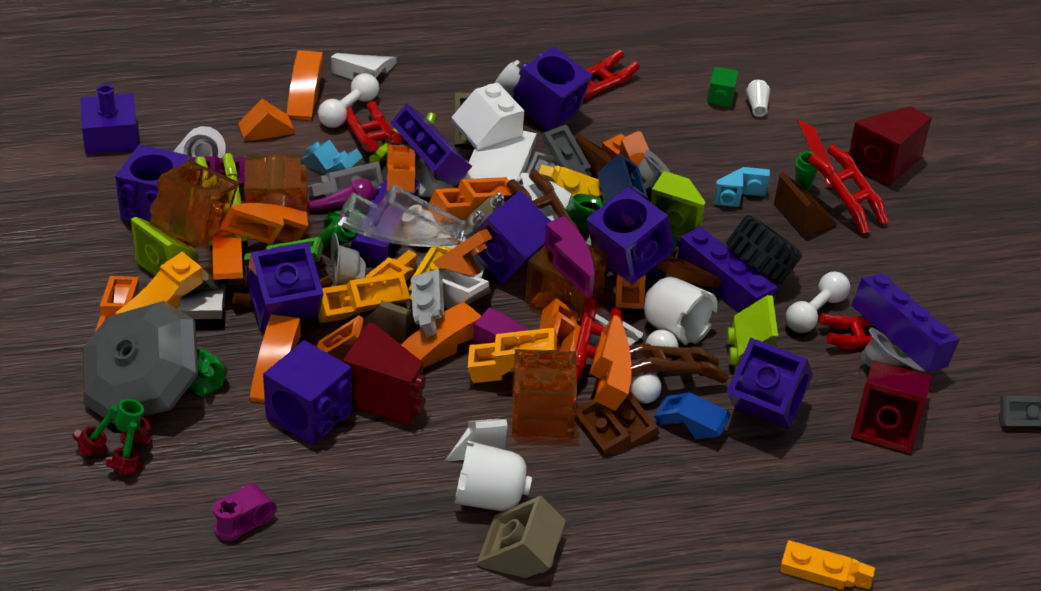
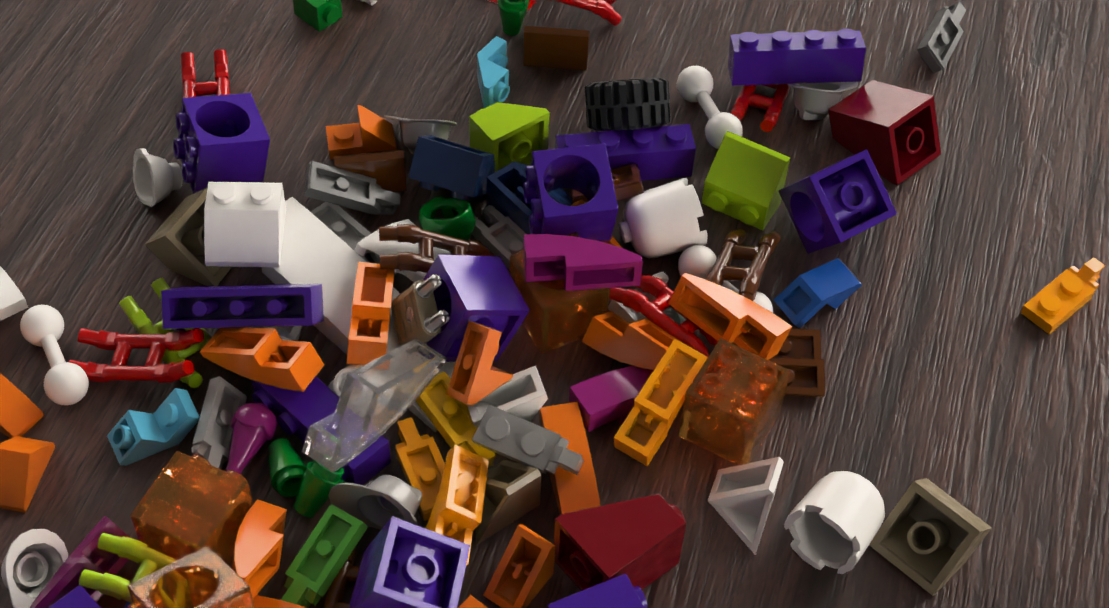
camera: 60 degrees left, 10 degrees up
(572, 181) = (392, 207): yellow hinge -> none

